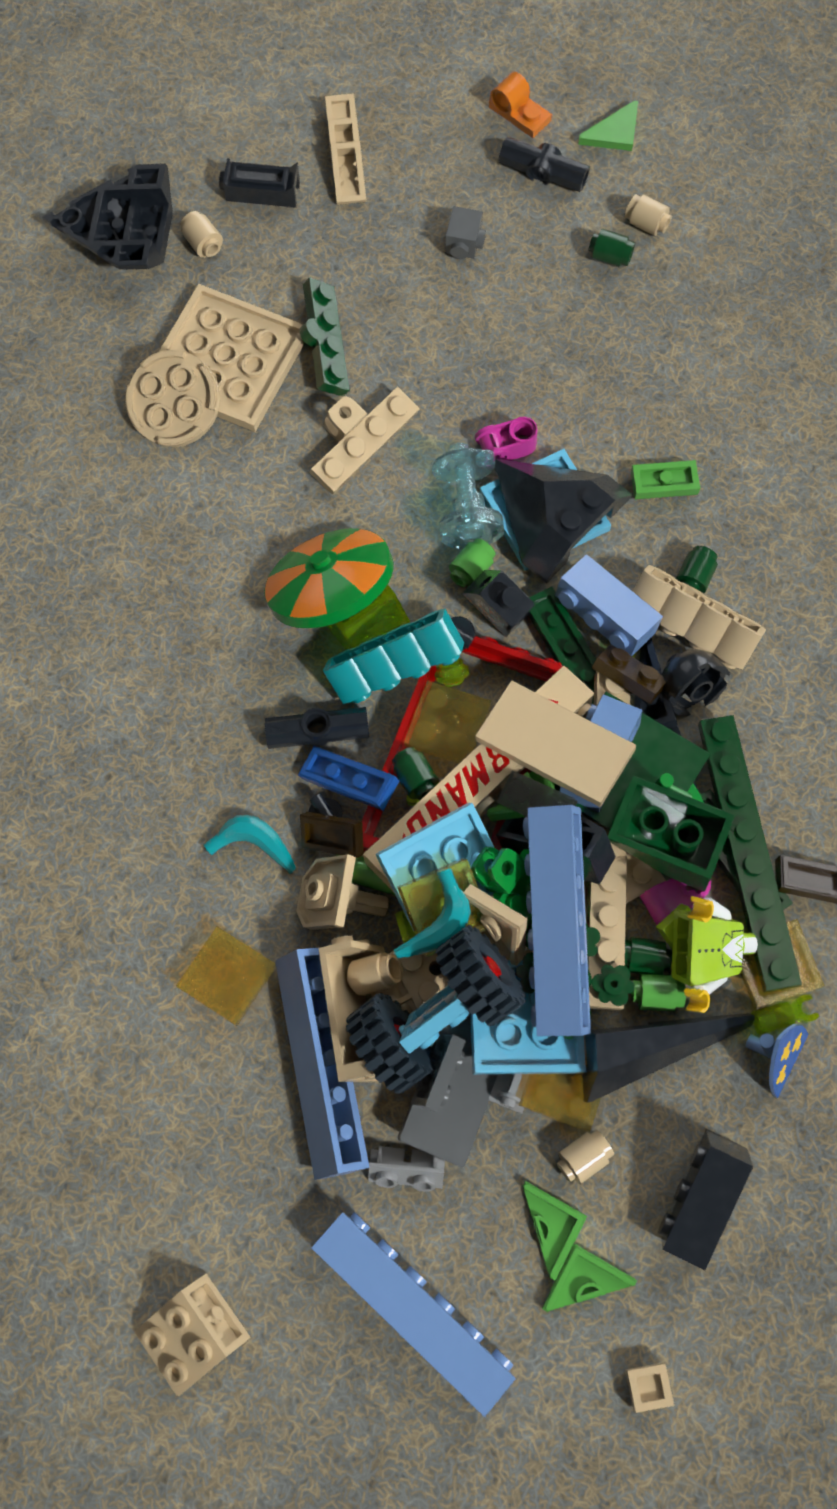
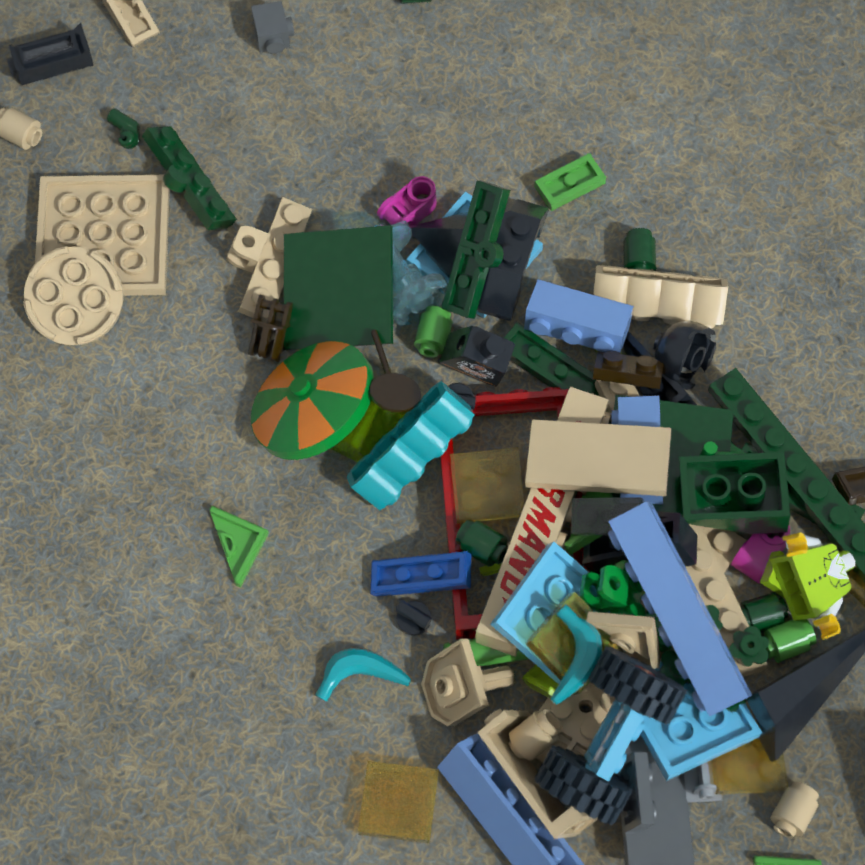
camera: 25 degrees left, 5 degrees down
(207, 678) = (239, 540): none -> bright green tile
(294, 729) = (349, 554): black piece -> none
(296, 274) = (128, 128): none -> dark green arm
(324, 501) = (269, 331): none -> dark brown arm
(331, 834) = (432, 631): dark brown tile -> none
(399, 599) = (392, 390): none -> dark brown piece
(404, 486) = (339, 286): none -> dark green piece
(452, 674) = (471, 439): clear neon green plate -> none
(540, 502) = (476, 249): none -> dark green hinge

